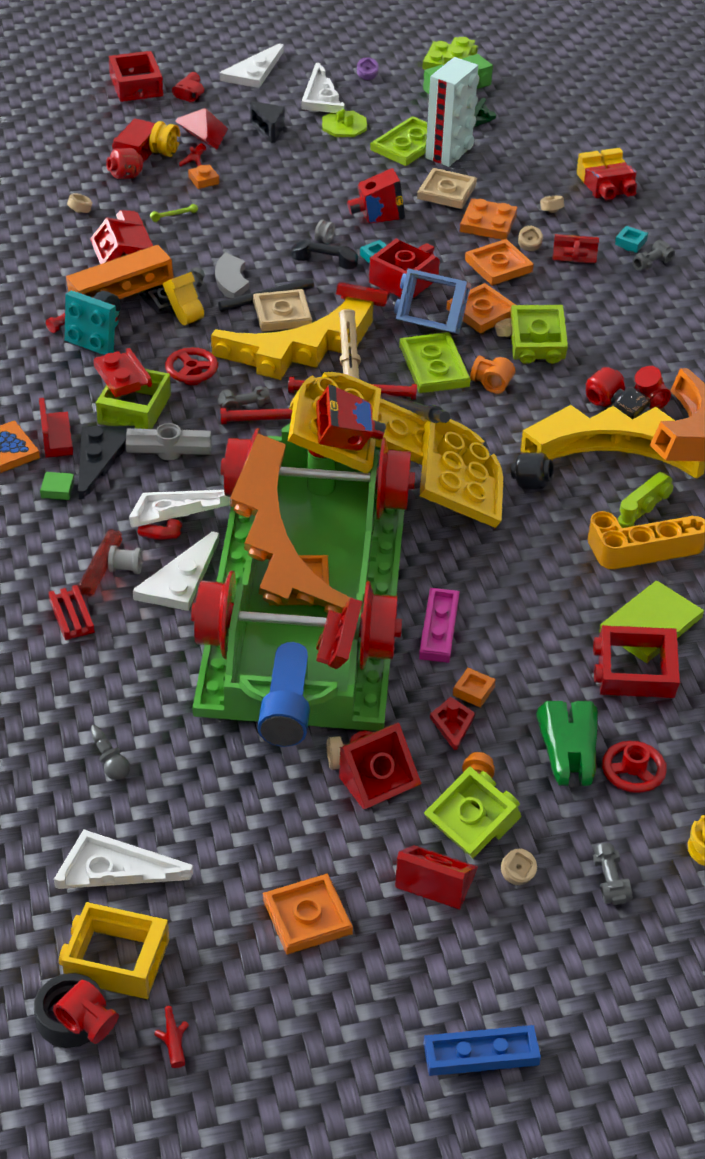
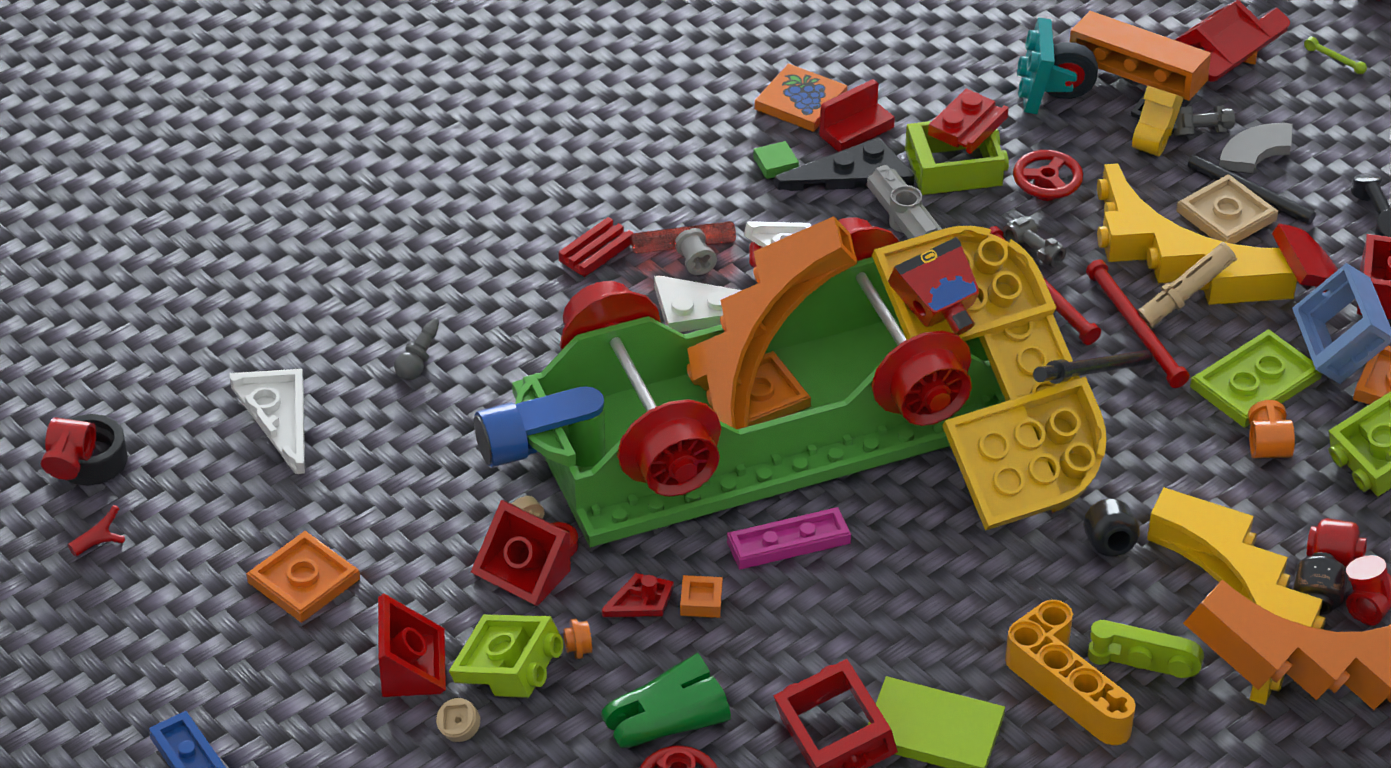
camera: 65 degrees right, 0 degrees up
(122, 924) = (171, 476): yellow window -> none
(338, 635) = (616, 421): red slope -> none

